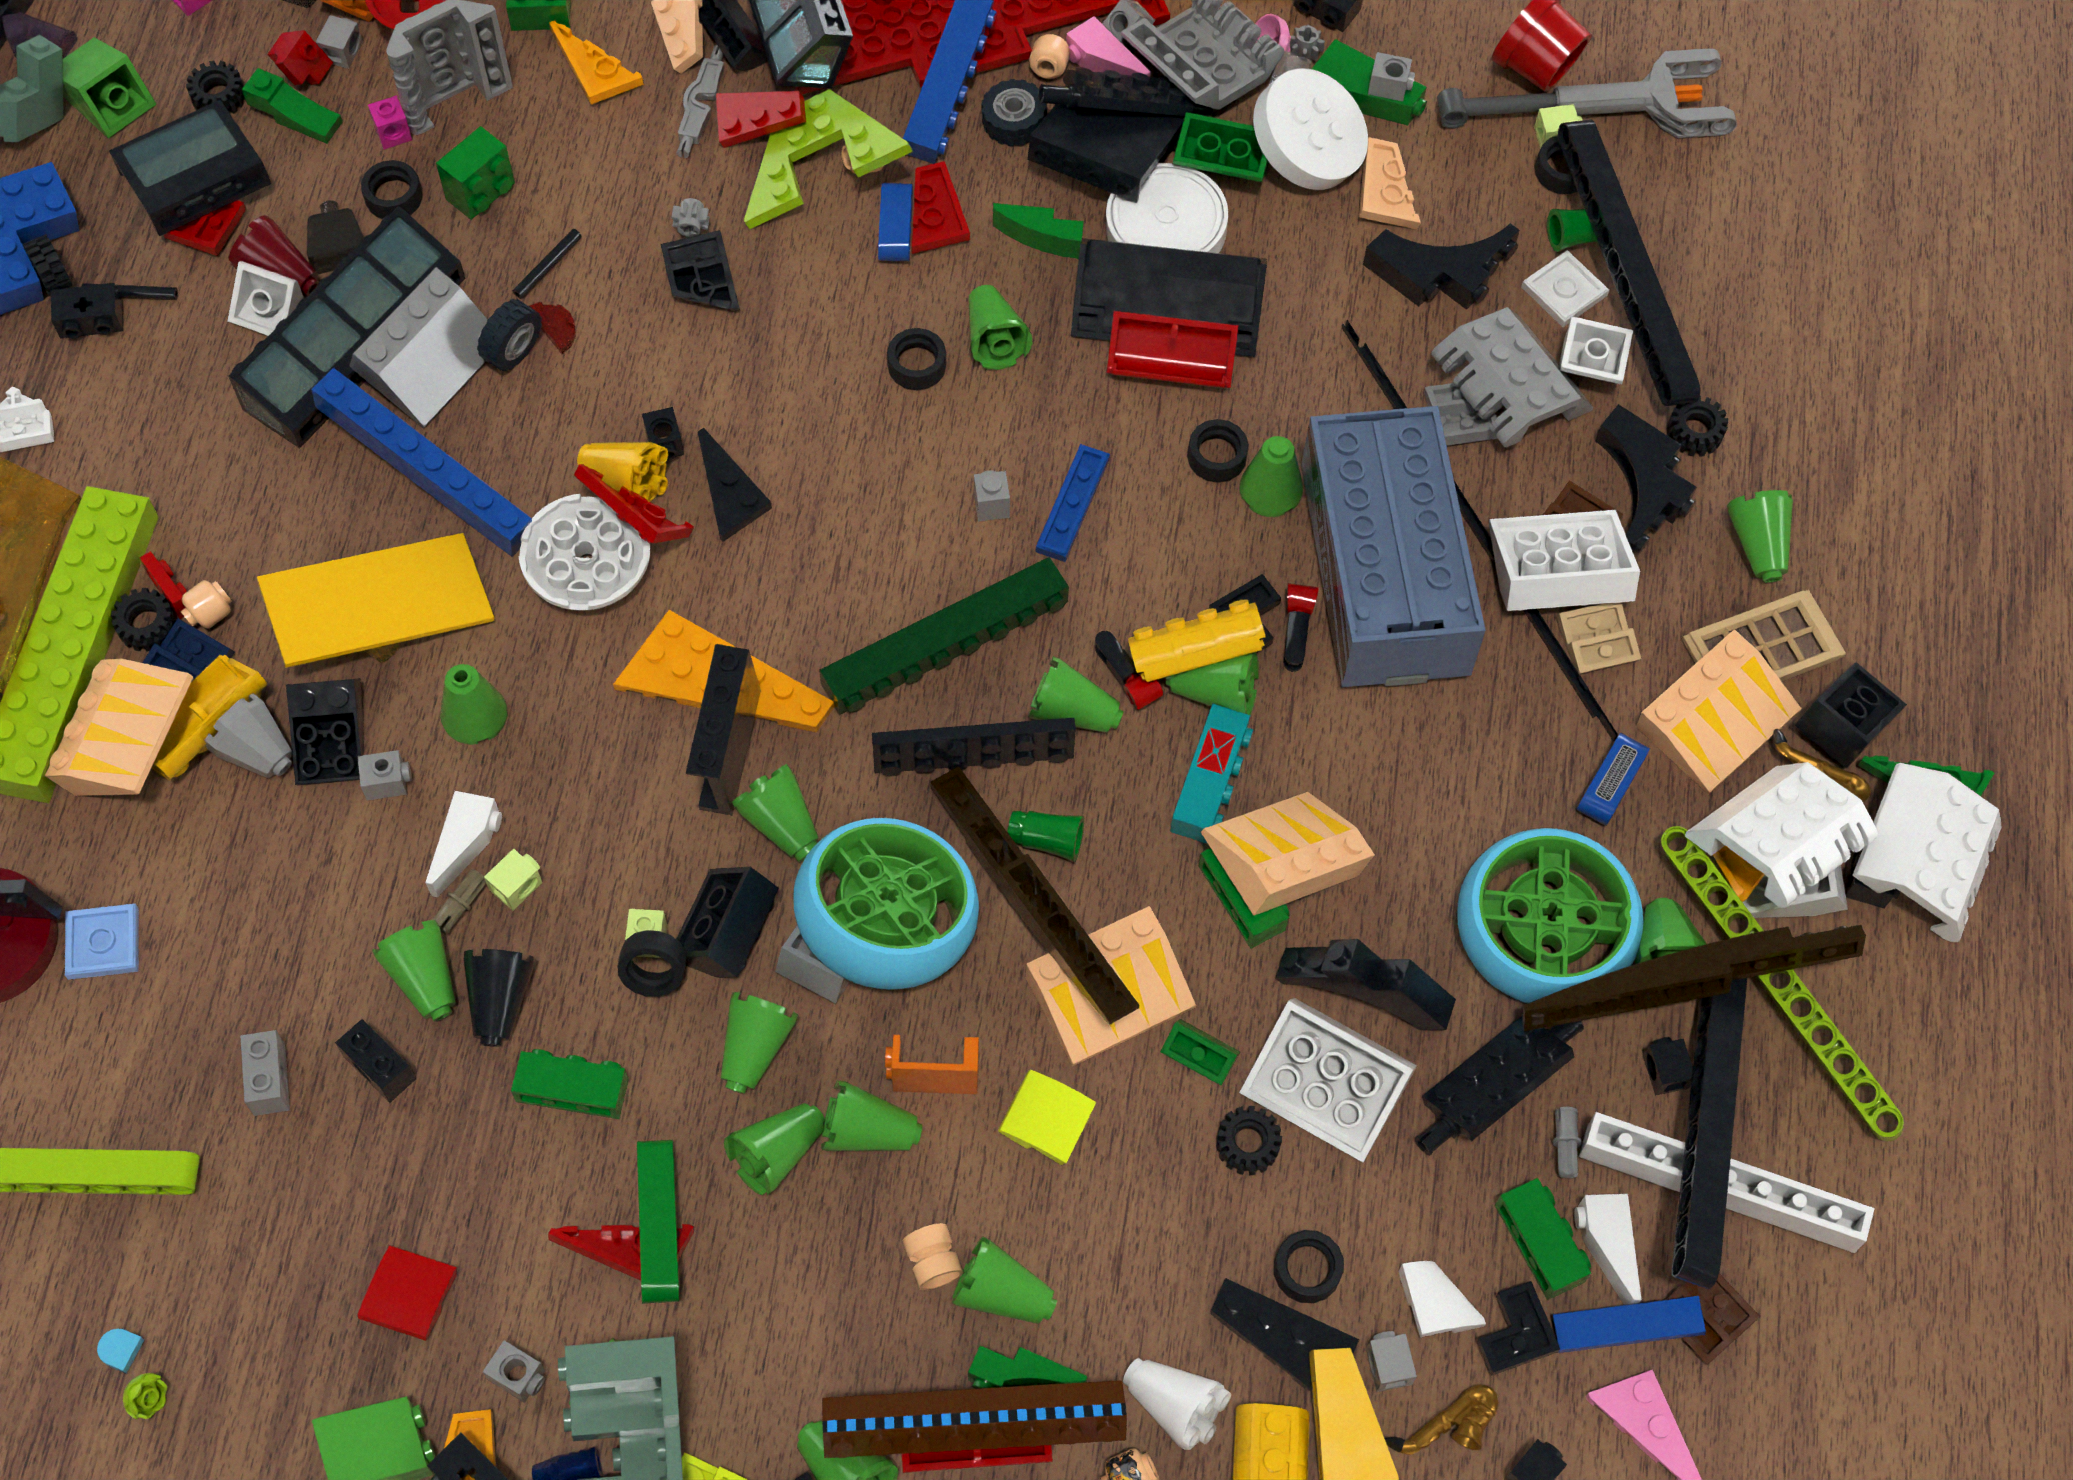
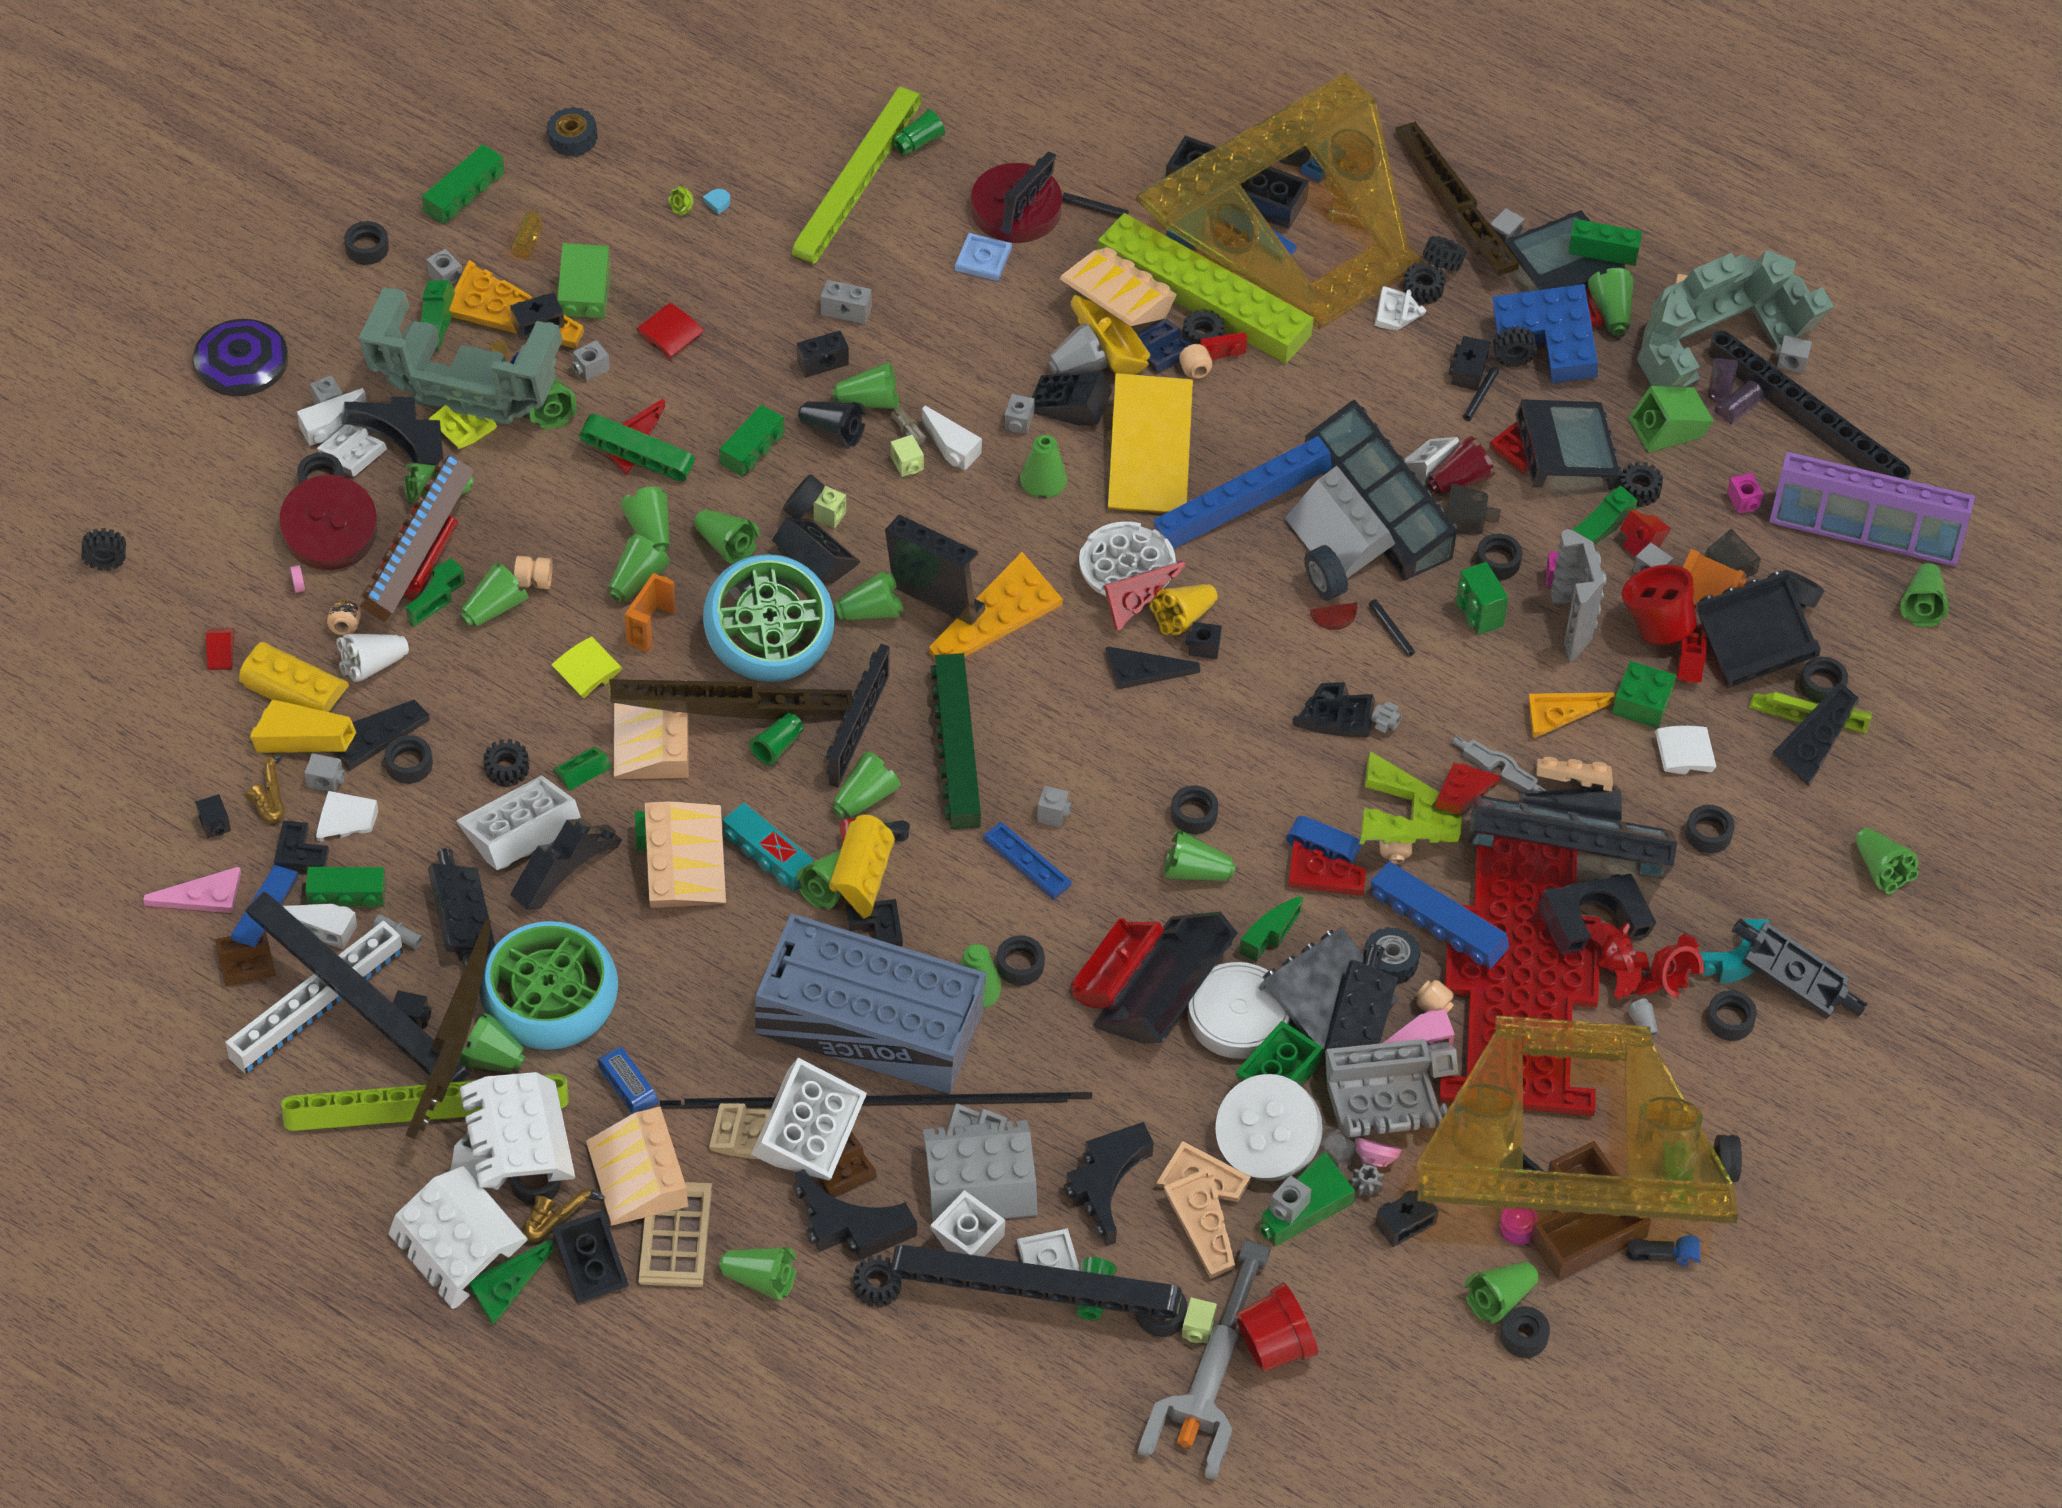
camera: 115 degrees right, 10 degrees down
(1442, 163) = (1201, 1216): none -> light nougat wing

